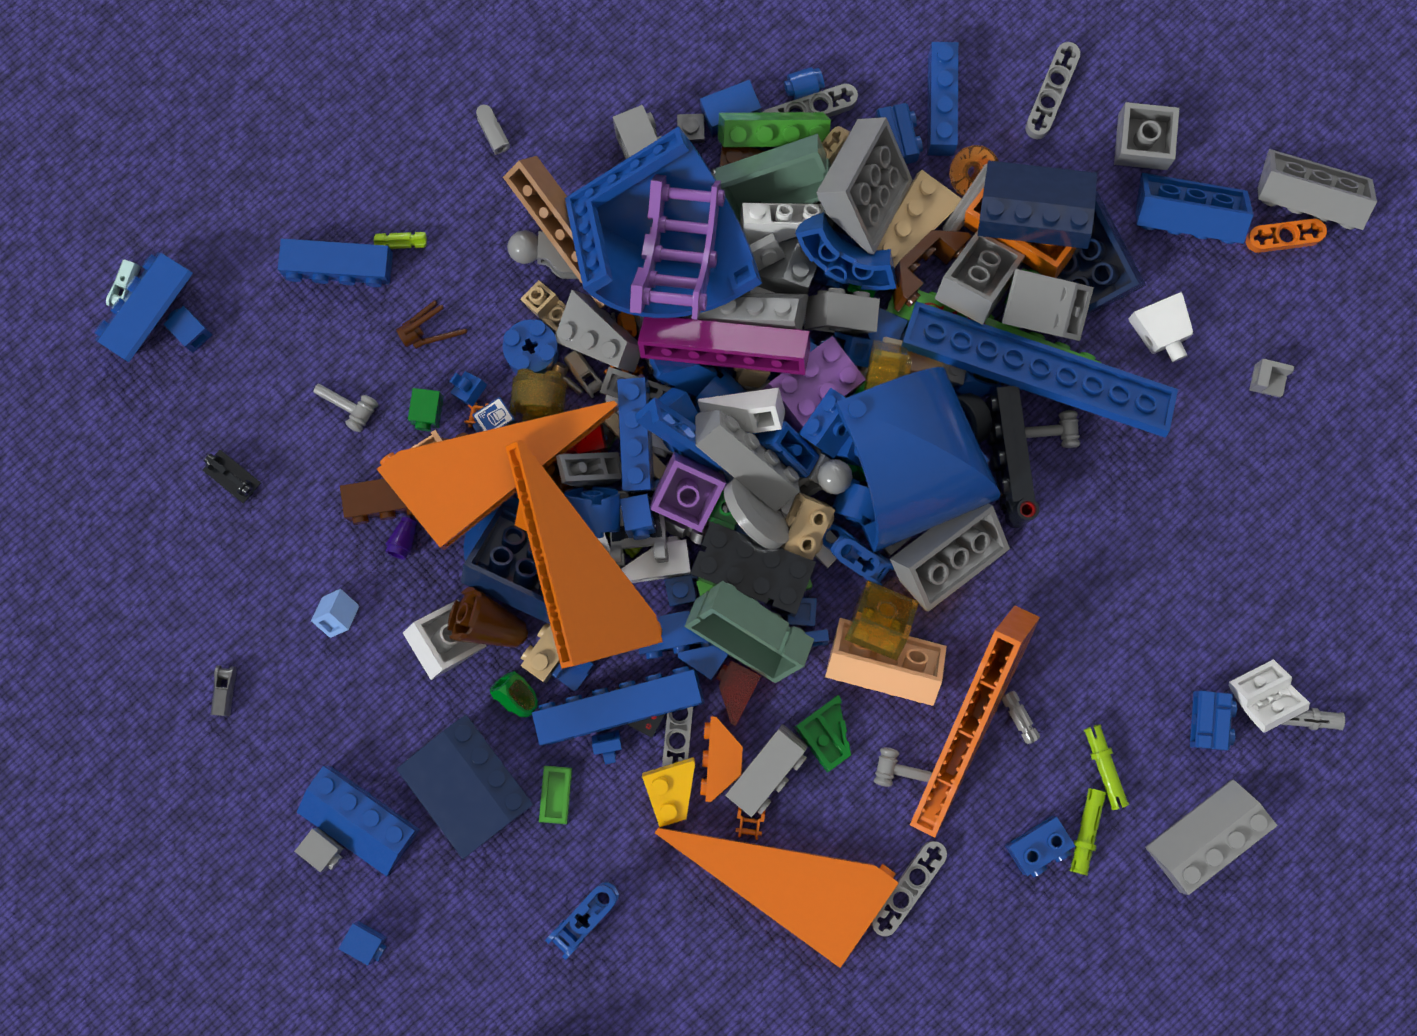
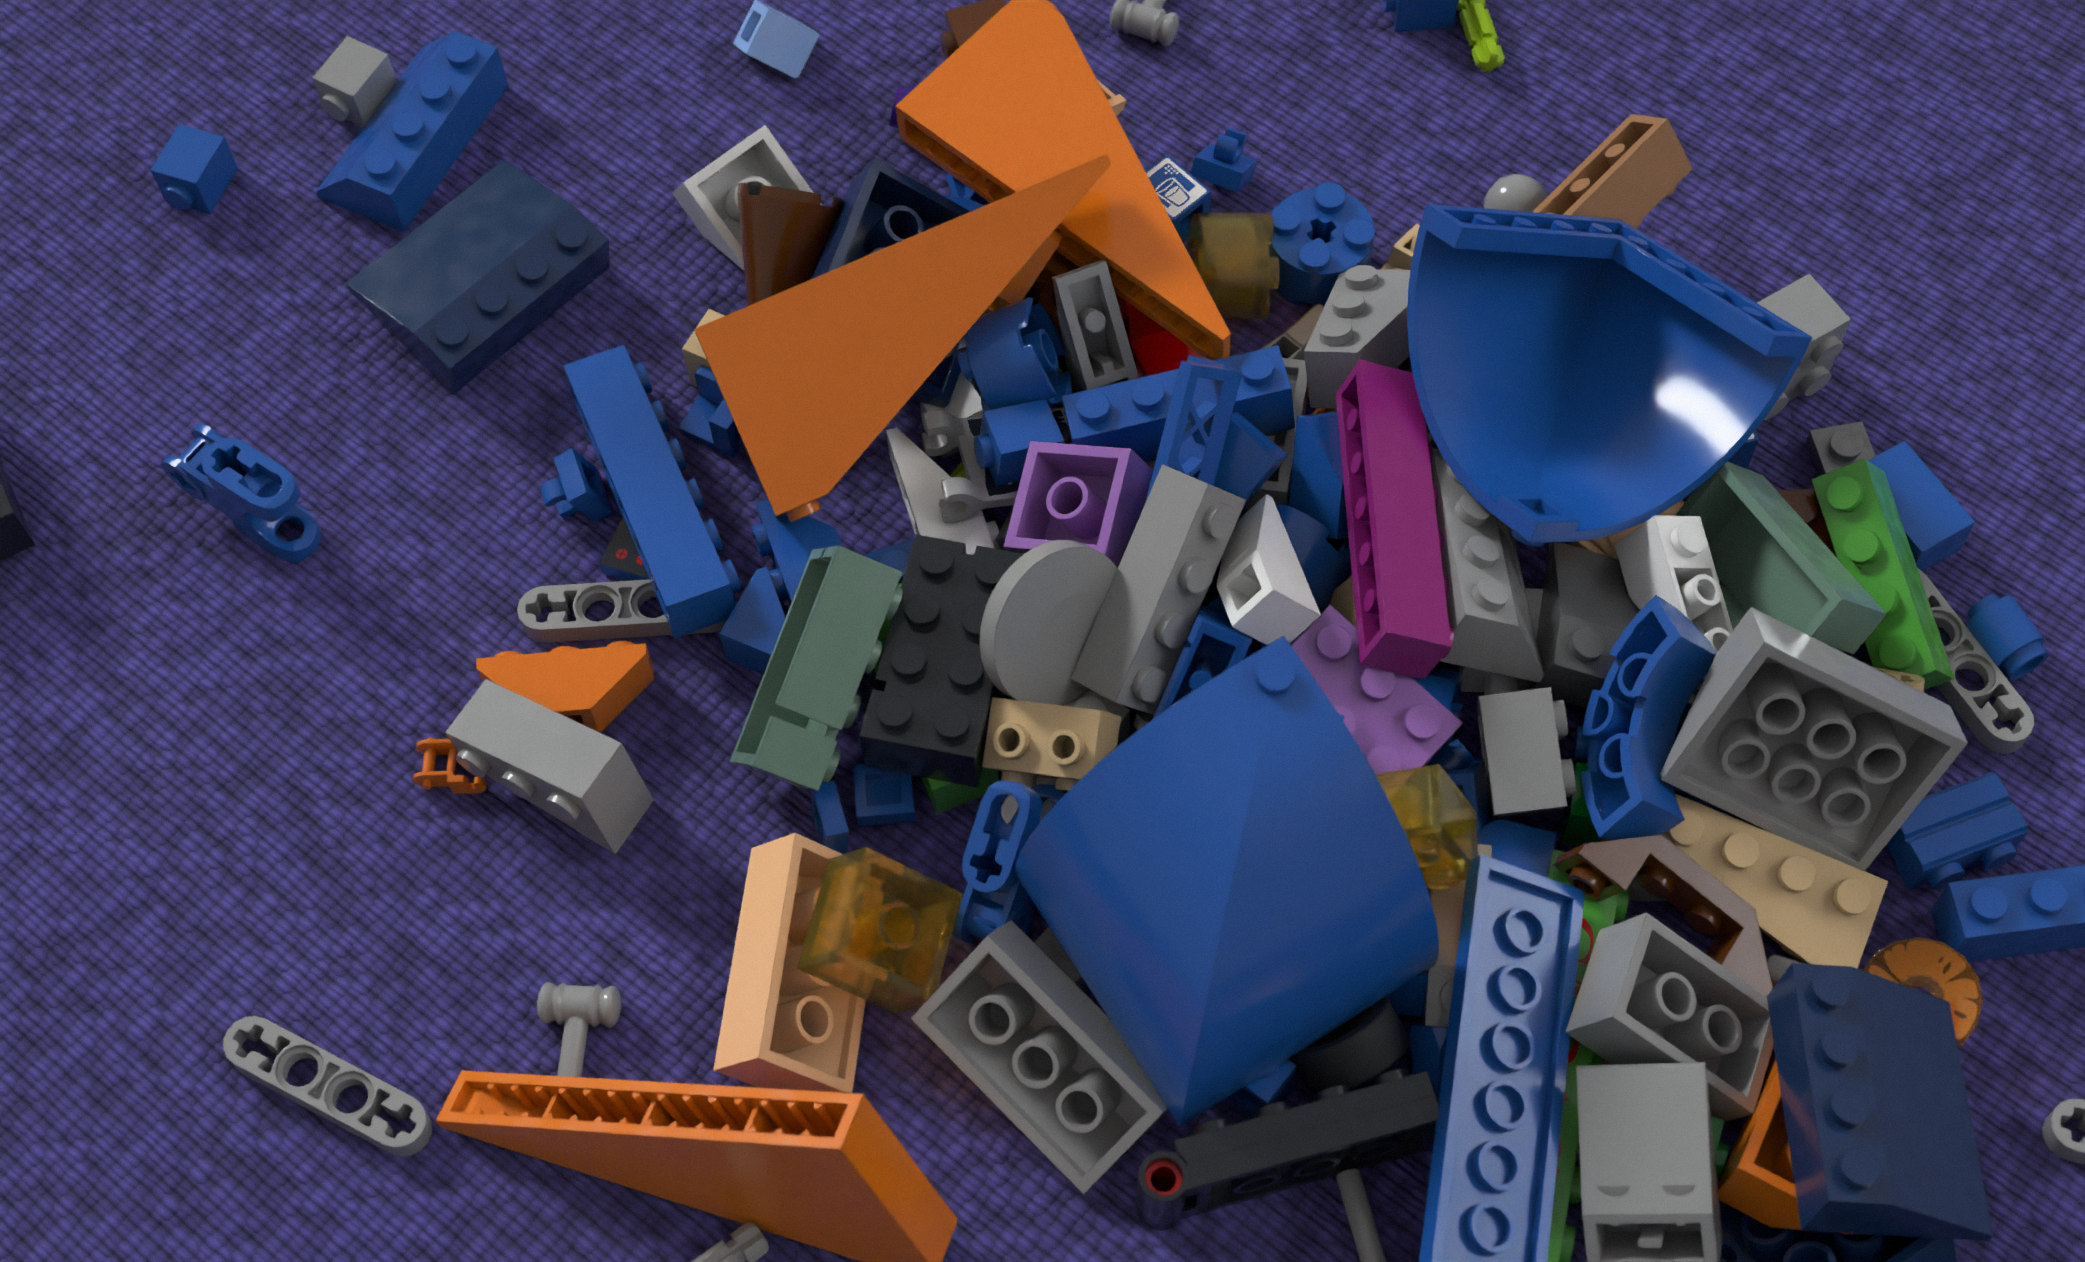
camera: 80 degrees right, 20 degrees down
(411, 331) = (1313, 69): reddish brown plant -> none
(425, 409) = (1170, 108): green brick -> none
(492, 129) = (1731, 128): light grey bar -> none
(515, 694) = (657, 324): green rock -> none
(555, 795) = (479, 426): bright green tile -> none
(563, 369) = (1283, 305): flat silver hand -> none
(653, 252) = (1552, 361): medium lavender fence -> none
(670, 790) = (495, 604): yellow wing -> none
(736, 689) = (702, 693): clear red slope -> none
(766, 251) = (1608, 572): light grey bracket -> none
(811, 895) = (305, 886): orange slope -> none
(826, 734) = (636, 876): green wing -> none

